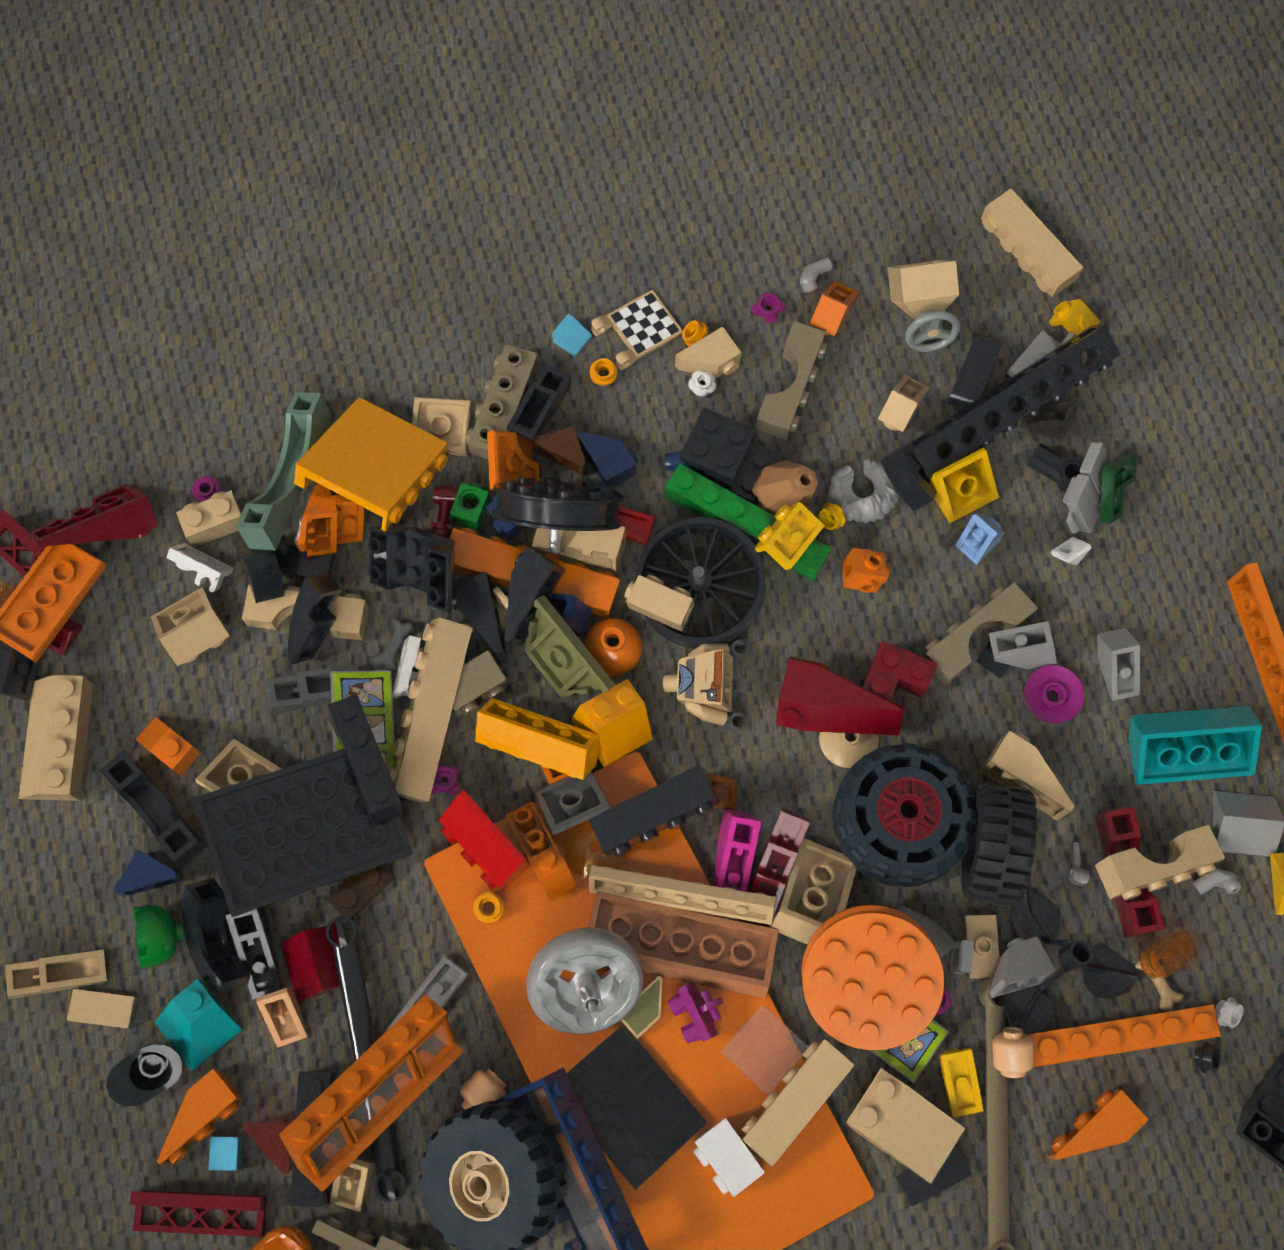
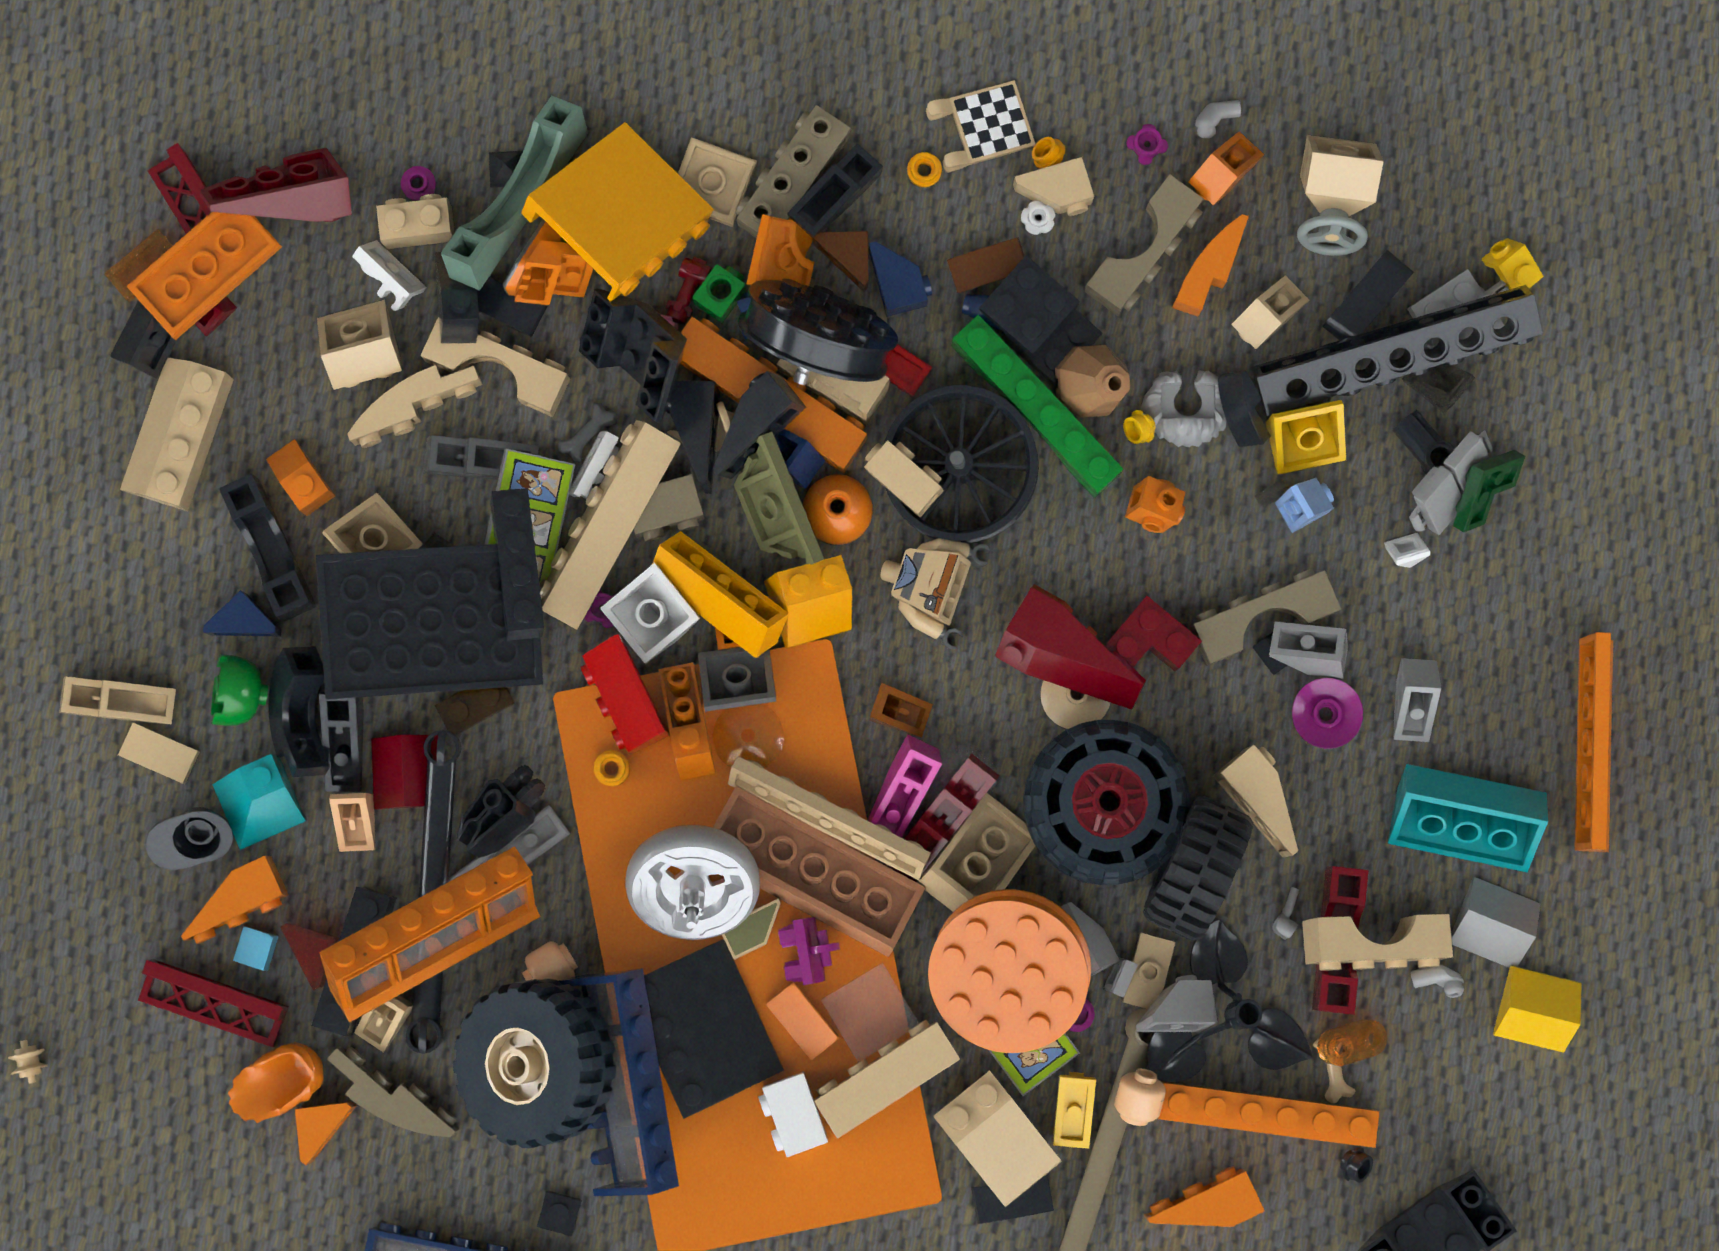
camera: 15 degrees right, 10 degrees up
(234, 665) = (398, 406): none -> tan slope
(269, 460) = (502, 166): none -> black slope
(311, 617) = (501, 378): black slope -> none
(405, 972) = (500, 812): none -> black hinge
(486, 770) = (650, 613): none -> white slope
(571, 335) = (899, 112): medium azure slope -> none
(654, 811) = (825, 717): black brick -> none
(672, 428) = (985, 264): none -> reddish brown slope
(710, 1074) = (802, 1021): none -> orange slope
(789, 534) = (1077, 441): yellow bracket -> none
(847, 383) = (1210, 268): none -> orange slope
(1031, 243) = (1493, 153): tan brick -> none
(1229, 1012) = (1398, 1125): white plate -> none

